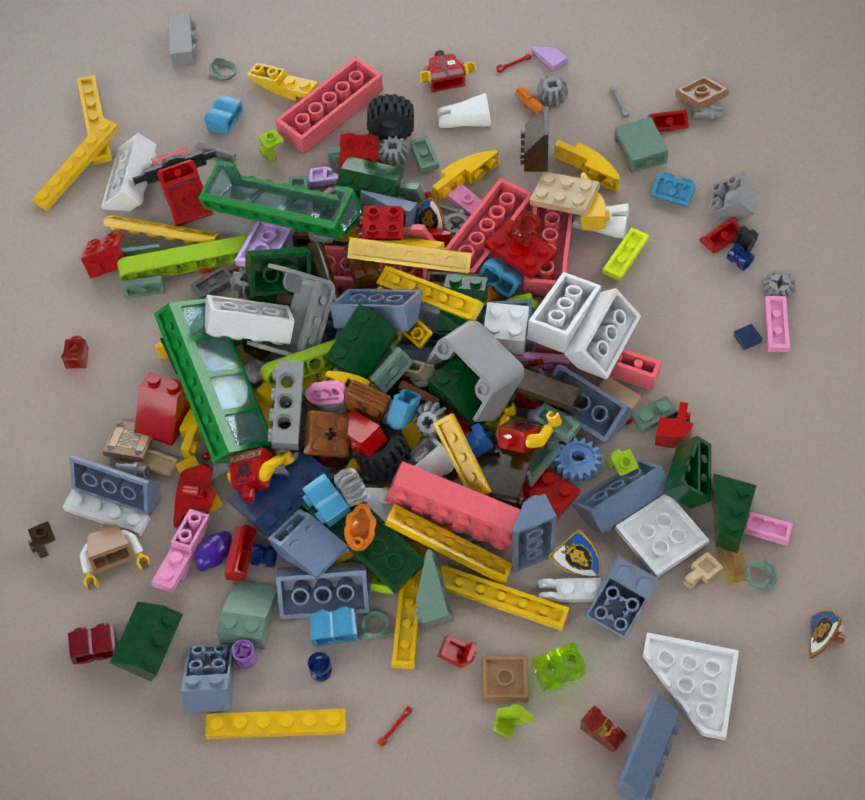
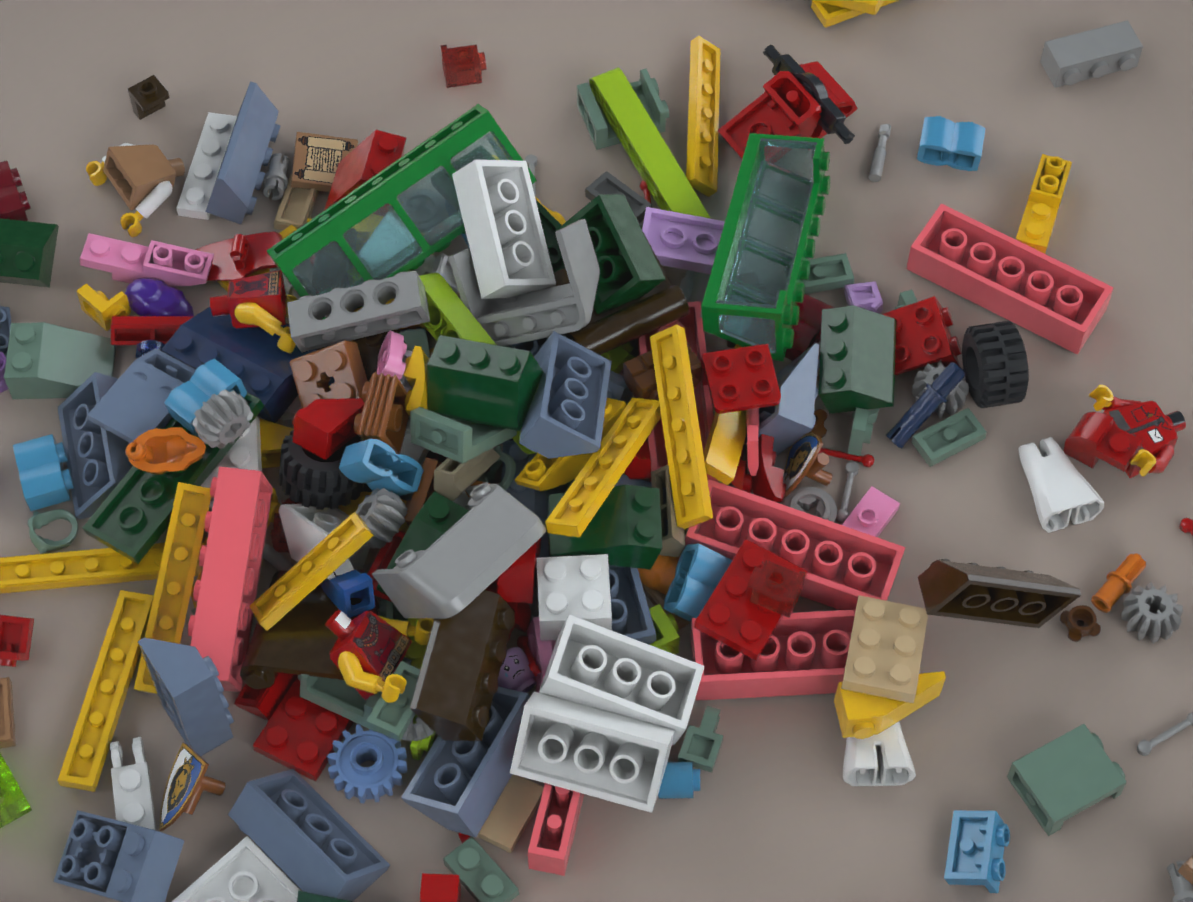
camera: 75 degrees right, 0 degrees up
(102, 255) = (633, 47): red bracket -> none
(129, 162) = (831, 48): white slope -> none
(210, 585) = (100, 307): none -> yellow bracket
(224, 63) = (1063, 116): sand green piece -> none
(268, 142) = (901, 212): lime bracket -> none
(407, 154) = (926, 404): none -> dark blue axle
(432, 595) = (87, 580): sand green slope -> none
(446, 84) = (1099, 439): none -> red brick
(466, 169) = (932, 506): yellow slope -> none
(553, 122) = (1086, 616): none -> reddish brown plate
(590, 161) = (994, 701): yellow slope -> none
(622, 461) = (365, 827): lime bracket -> none
(625, 254) = (809, 786): neon yellow plate -> none
(670, 120) = (1145, 825): red slope -> none

